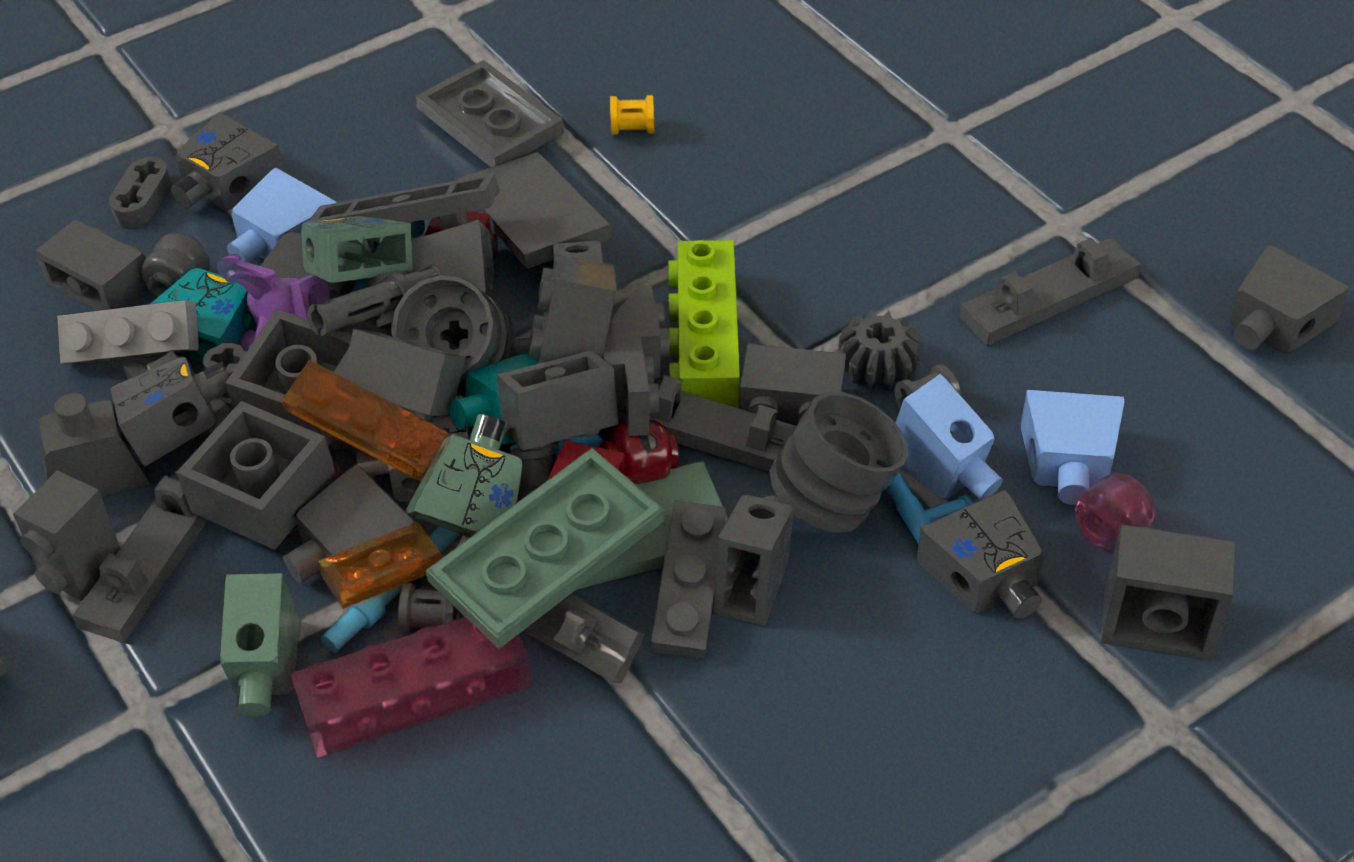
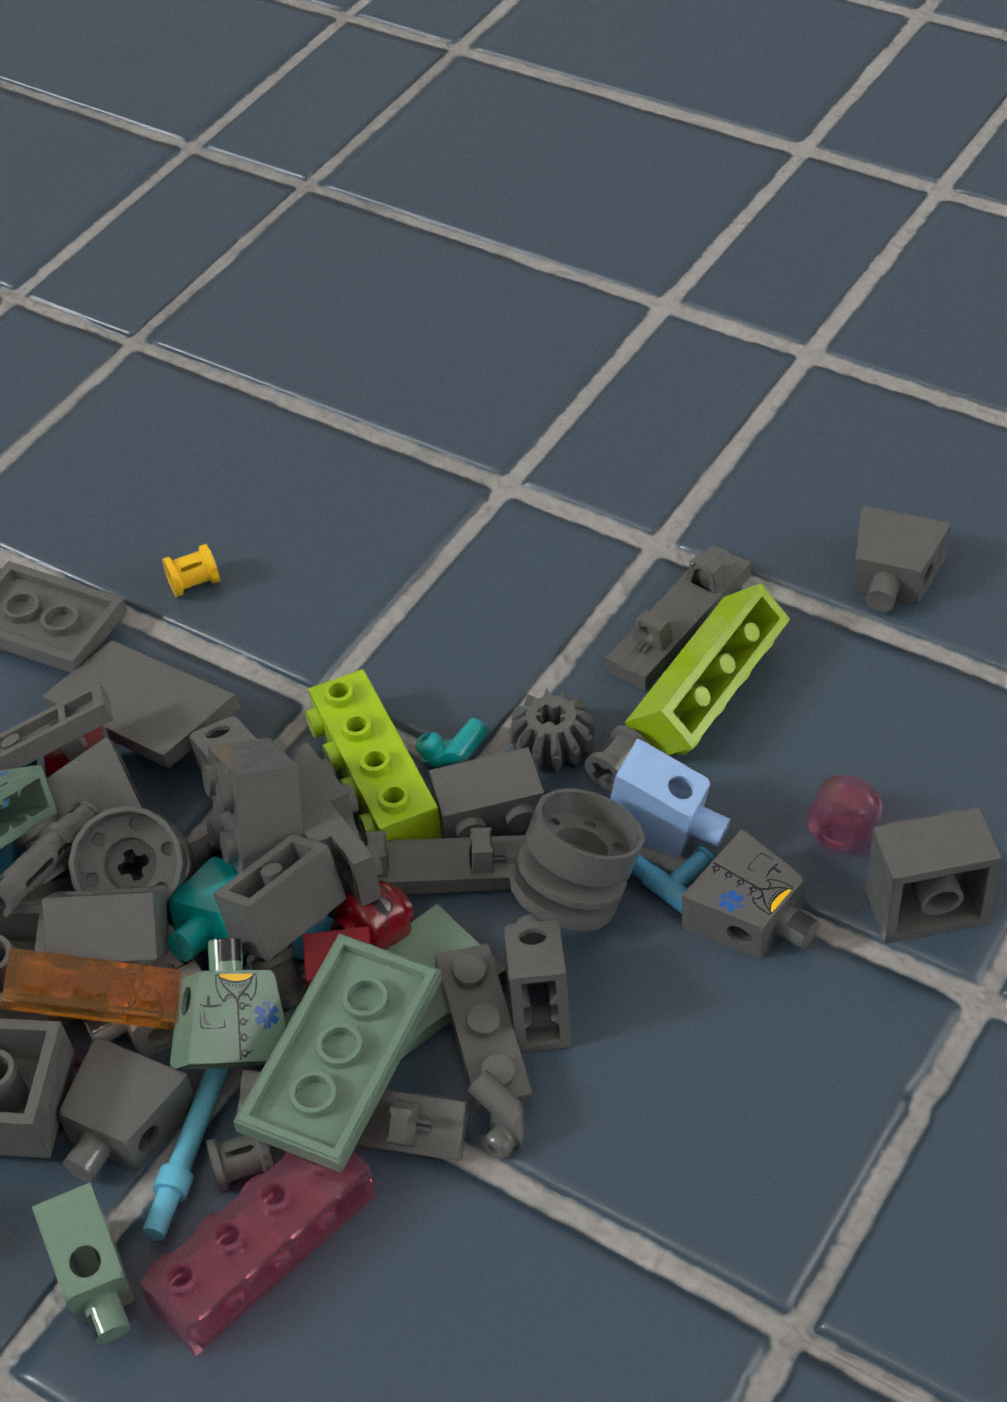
camera: 20 degrees left, 0 degrees up
(379, 564) = (173, 1132): clear orange plate -> none
(672, 656) = (505, 1115): none -> dark grey arm
(795, 336) = (453, 751): none -> teal arm
(1048, 344) = (708, 670): none -> lime brick
(1070, 439) = (771, 758): light blue torso -> none

